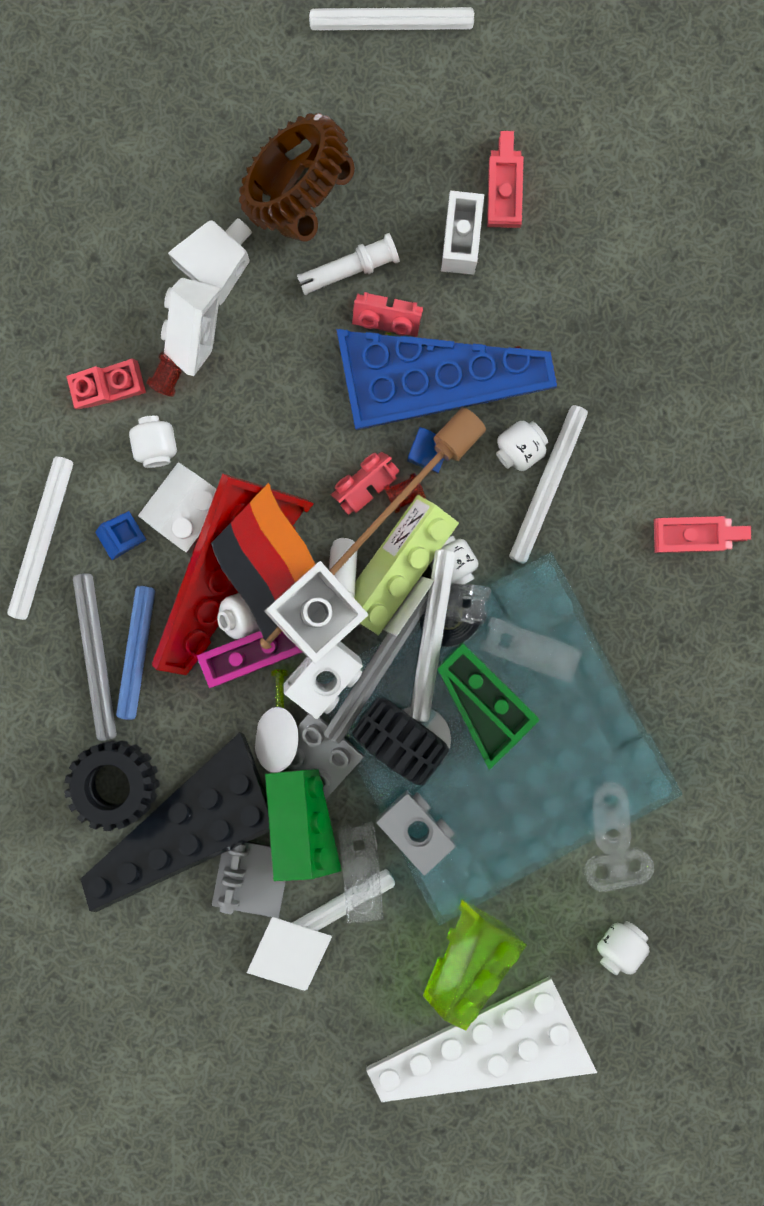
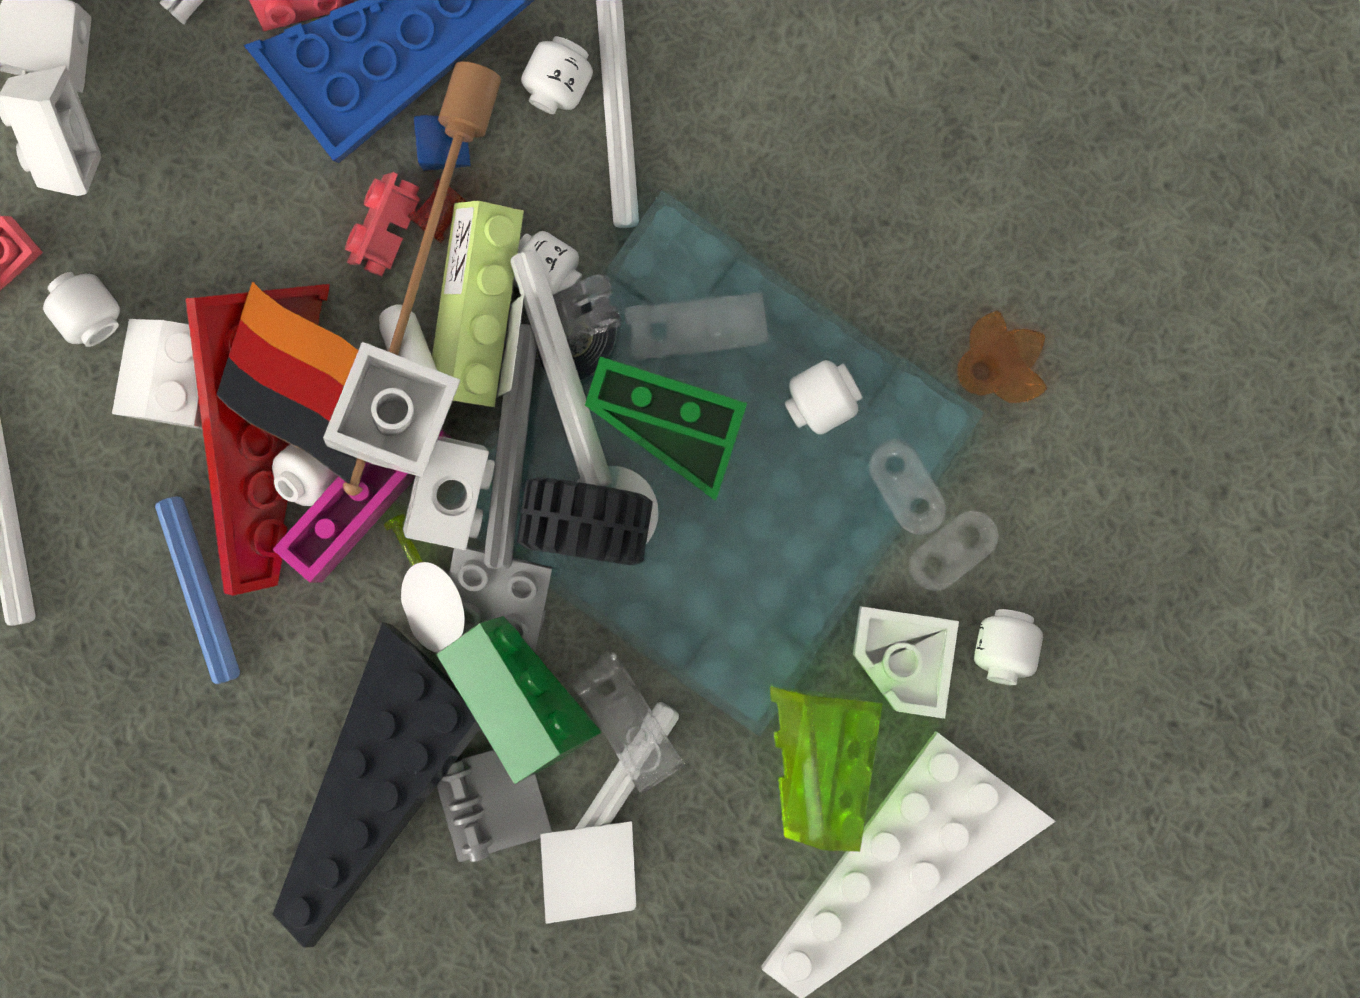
camera: 30 degrees left, 0 degrees up
(85, 795) = (212, 785): black tyre -> none
(94, 657) = (147, 622): light grey axle -> none
(120, 535) = (101, 450): blue slope -> none
(165, 376) = (55, 215): clear red bush -> none
(423, 851) = (687, 651): light grey brick -> none
(556, 922) = (907, 658): none -> white plate
(588, 736) = (823, 397): none -> white head
(697, 534) = (838, 75): coral hinge -> none
(713, 765) = (1008, 358): none -> clear orange plate

